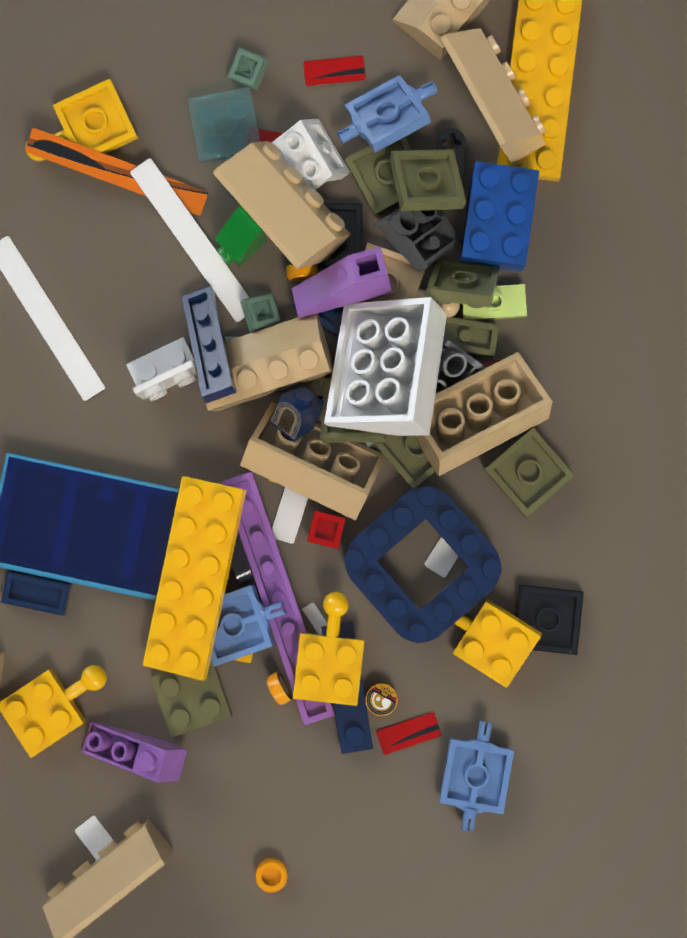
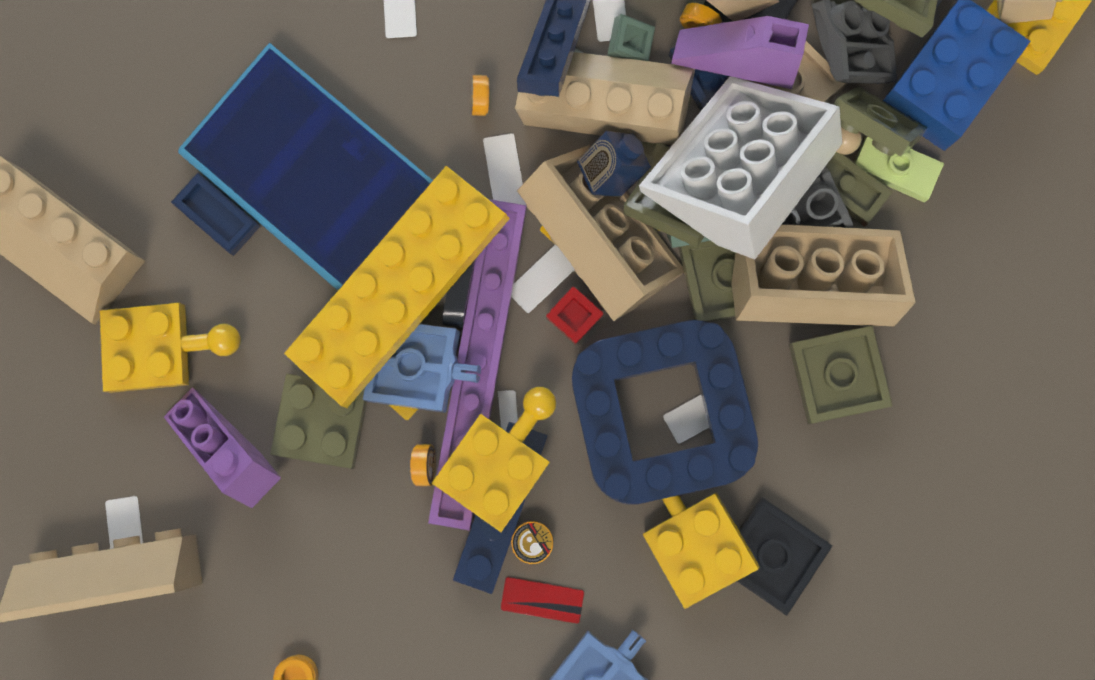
camera: 30 degrees right, 5 degrees down
(163, 369) = (487, 46): white bracket -> none
(175, 409) = (479, 95): none -> light orange tile
(220, 451) = (503, 168): none -> white sticker

